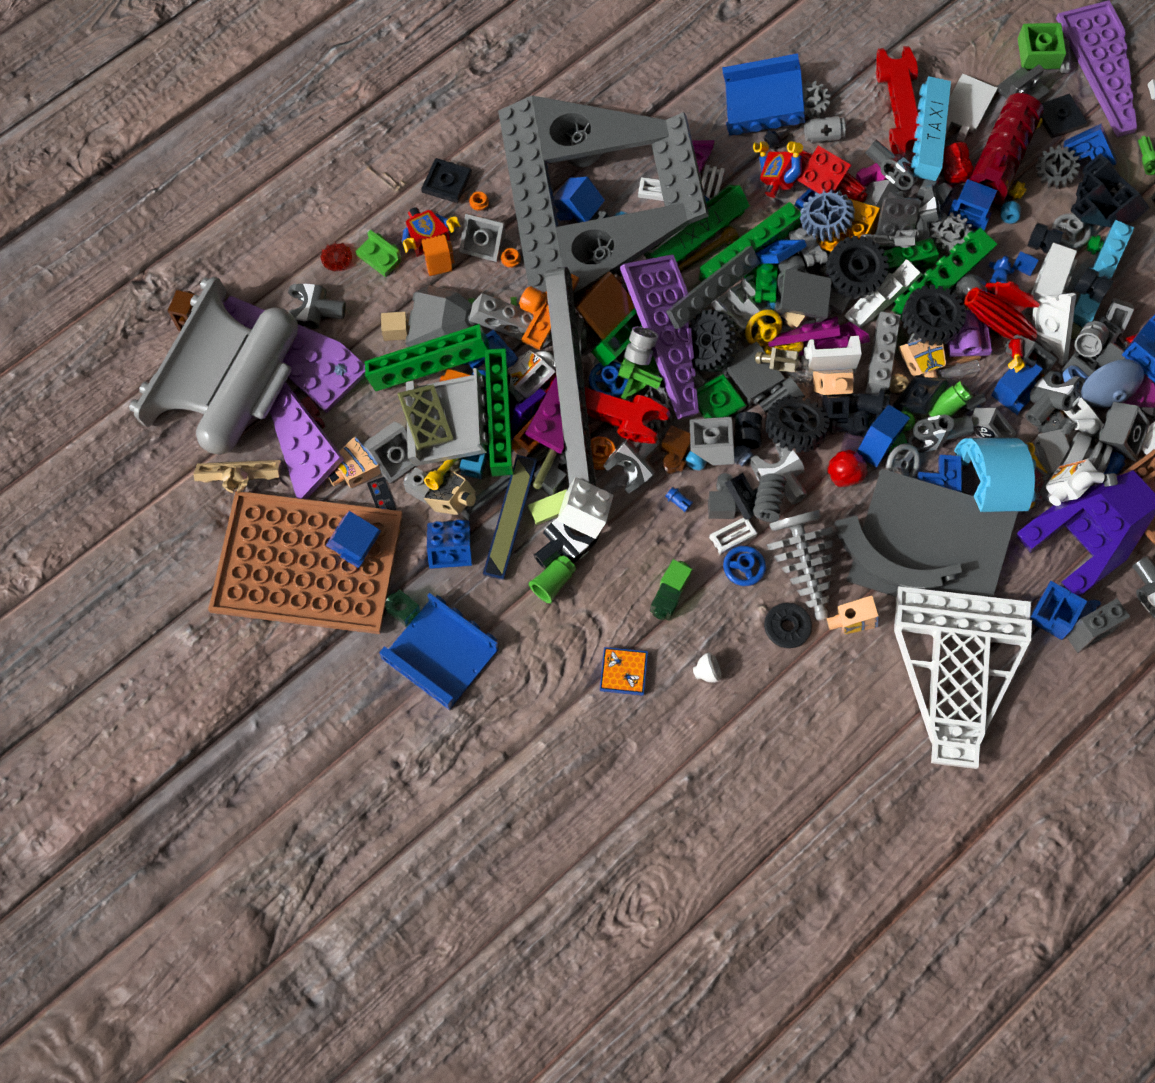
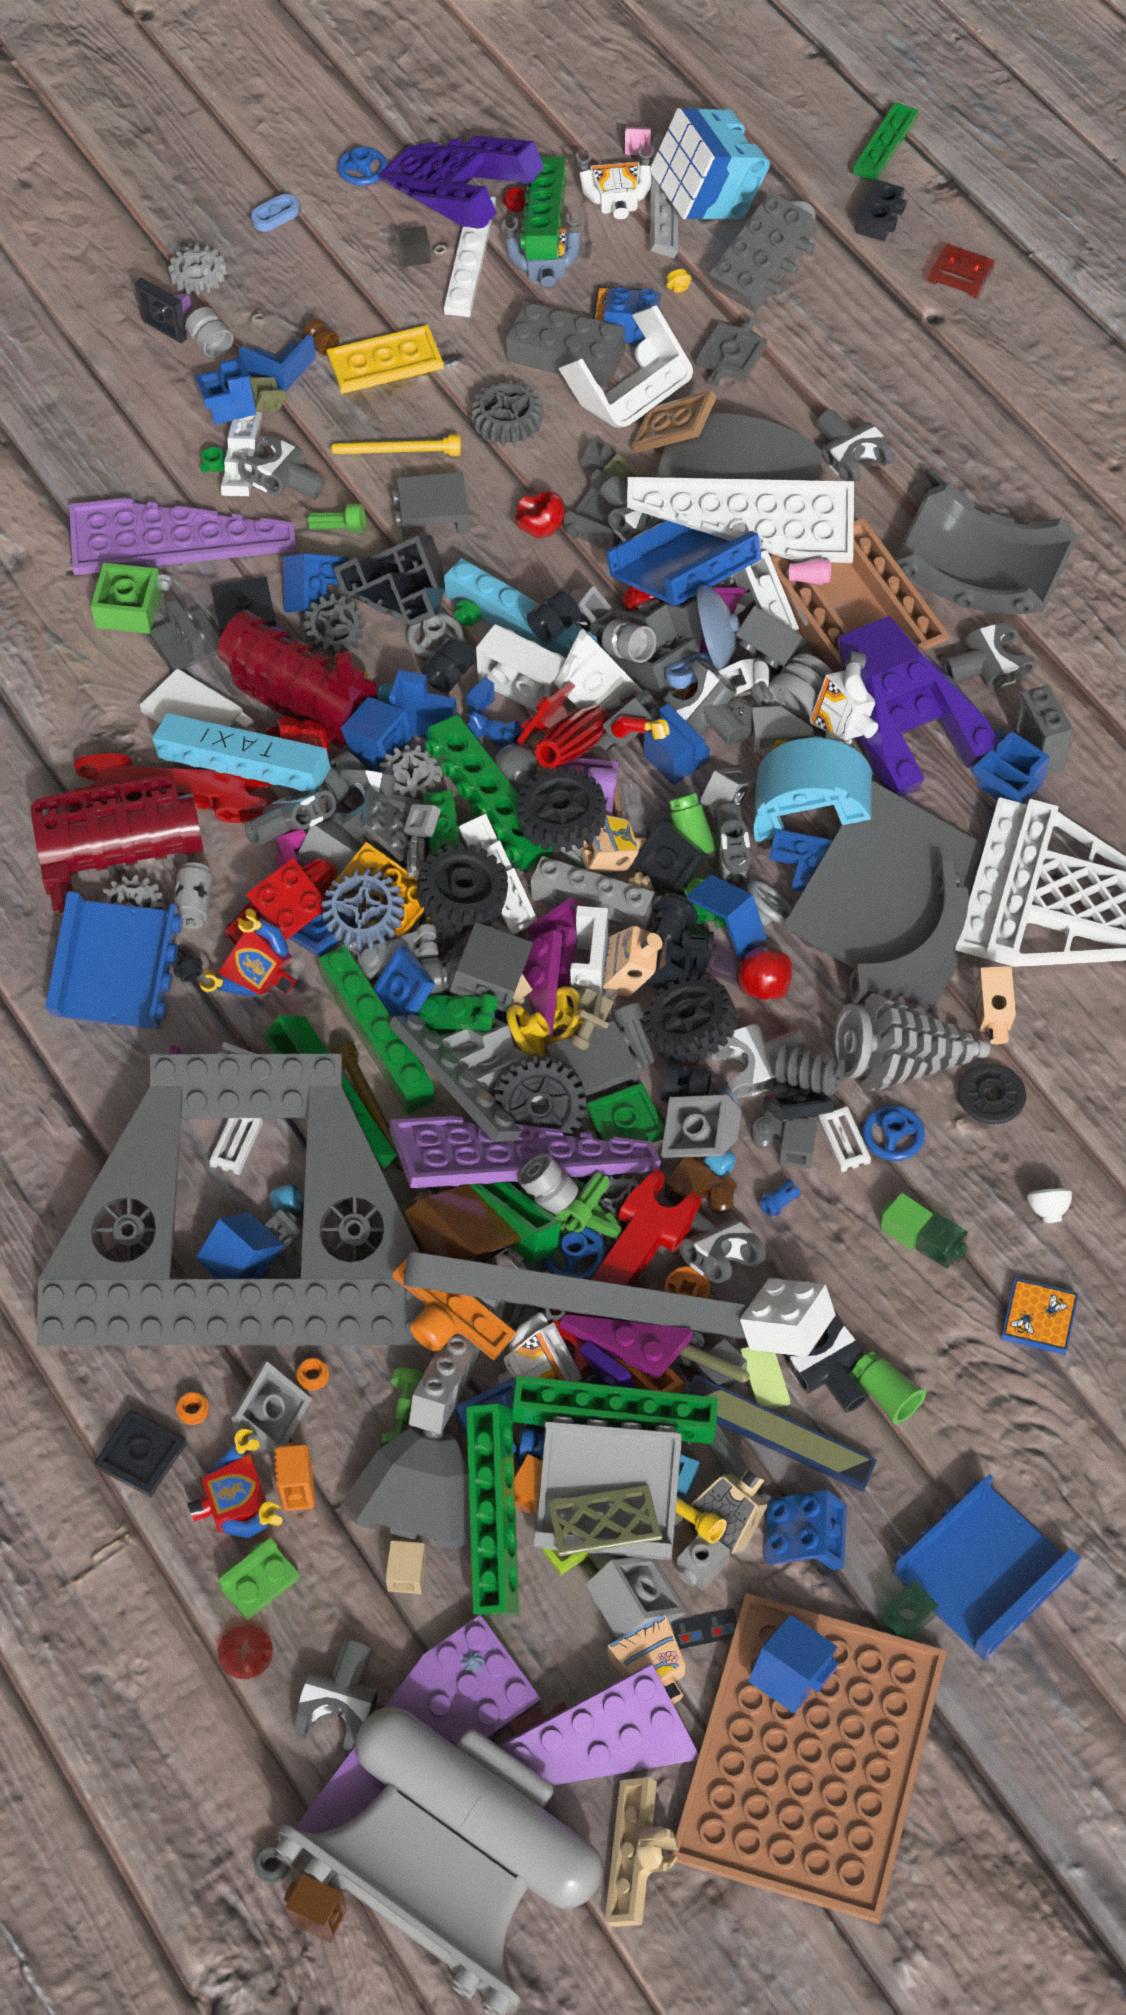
camera: 80 degrees left, 10 degrees down
(855, 74) = (111, 831): none -> dark red piece
(1003, 225) = (421, 707): none -> blue panel

